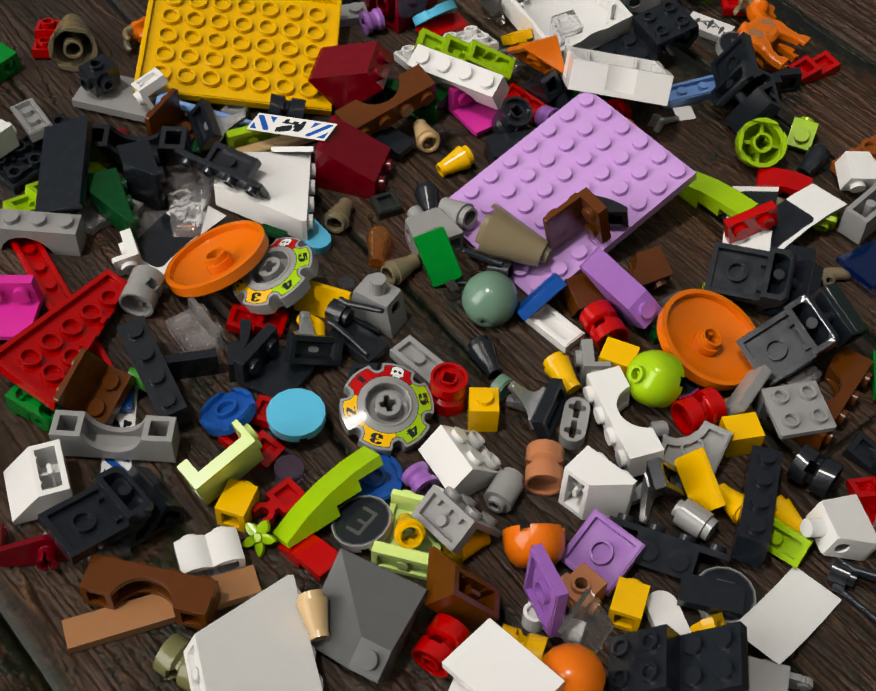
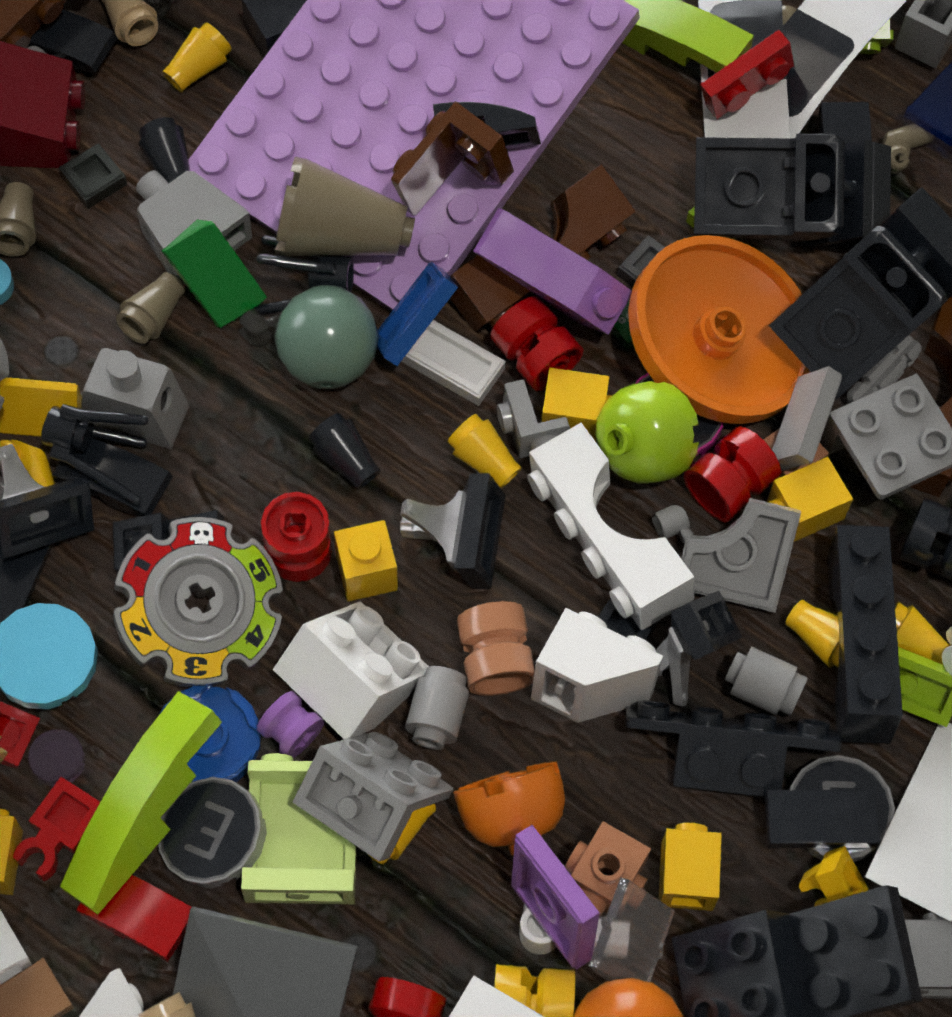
camera: 15 degrees left, 15 degrees up
(258, 536) = (38, 902): lime plant -> none
(378, 244) = (100, 267): clear orange cone -> none
(408, 531) = (296, 836): yellow cone -> none
(416, 358) = (228, 487): light grey plate -> none
(459, 212) = (230, 172): light grey cone -> none
(460, 591) = (409, 922): reddish brown slope -> none
(502, 382) = (386, 505): sand green tile -> none
(569, 421) = (537, 543): light grey beam -> none
(603, 548) = (627, 782): medium lavender tile -> none
(663, 609) = (757, 873): white tile -> none
(699, 479) = (760, 610): yellow slope -> none

